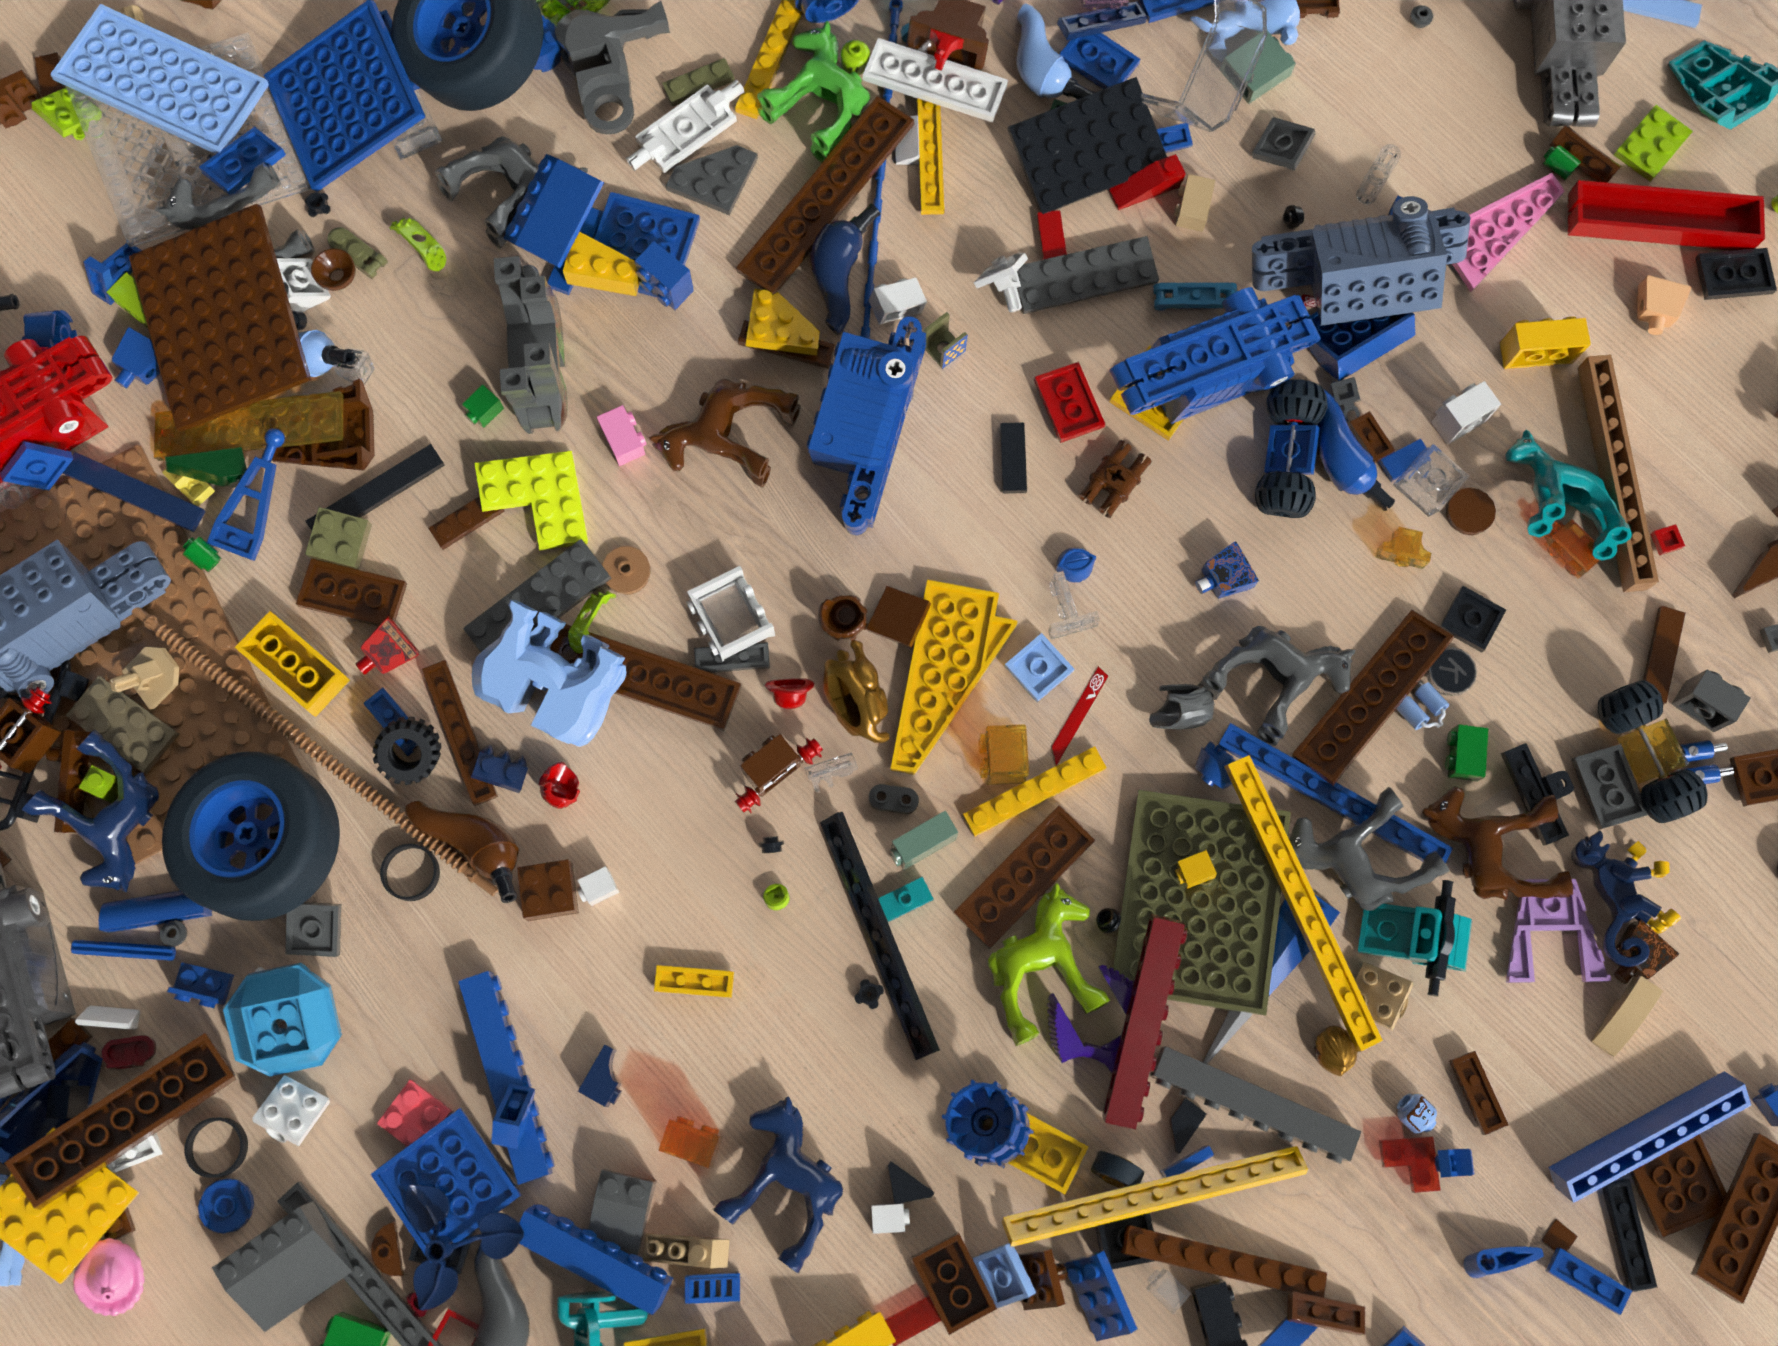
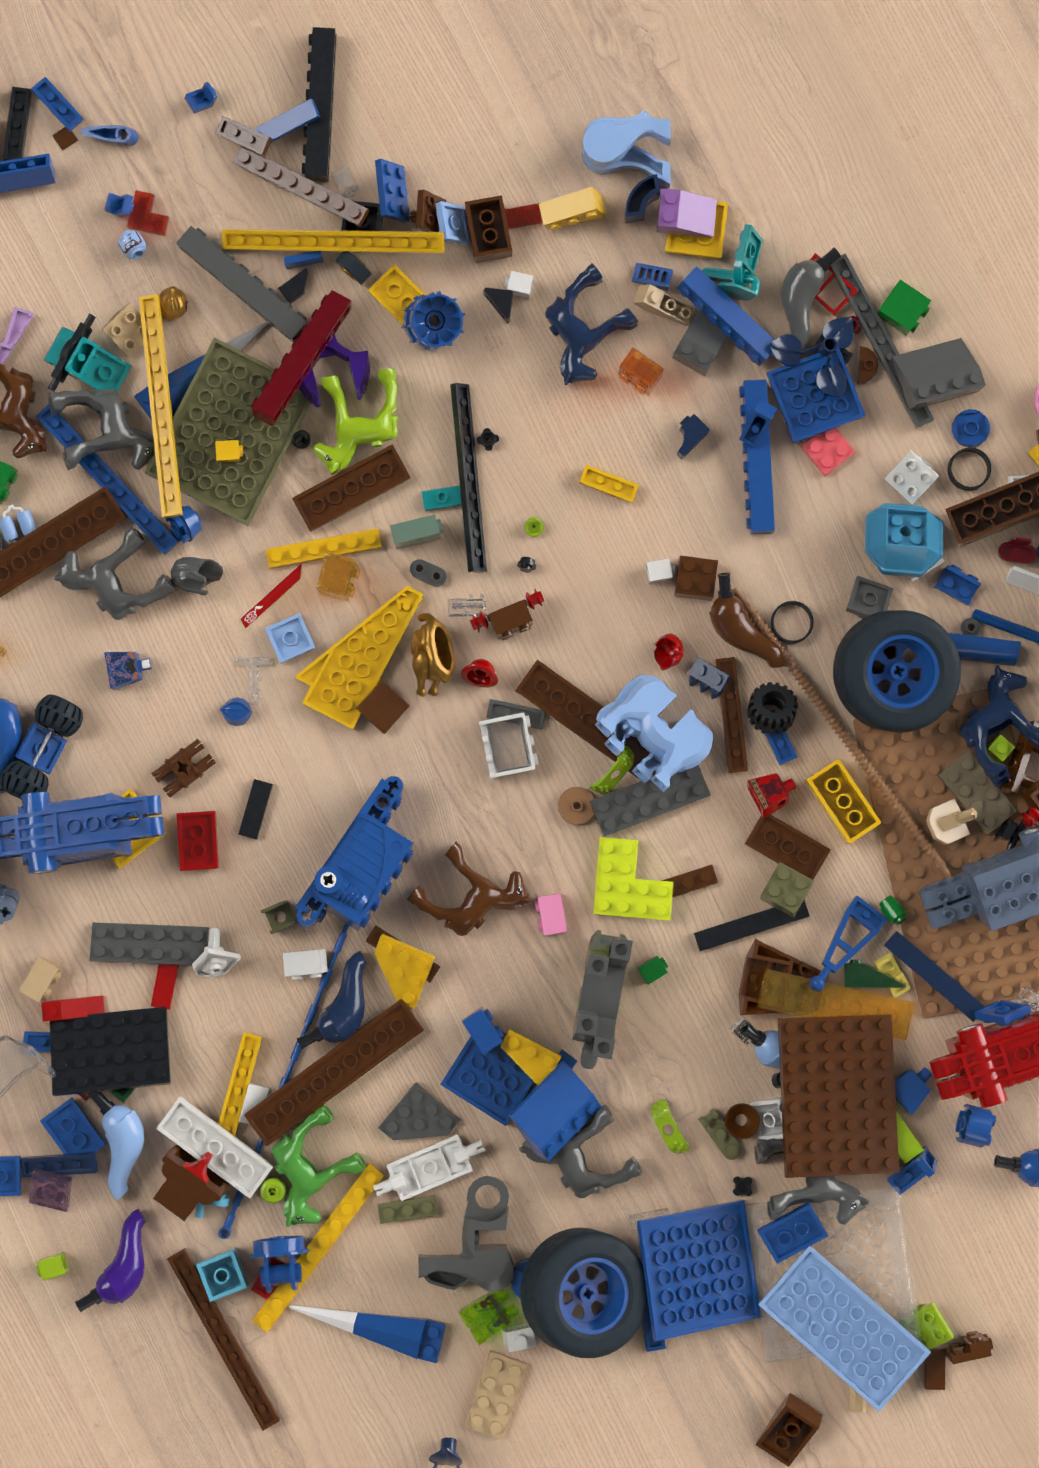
camera: 160 degrees left, 10 degrees up
(842, 617) = (424, 717): reddish brown hair -> none
(1191, 295) = (68, 900): dark azure plate -> none
(1478, 1093) = (83, 246): reddish brown plate -> none

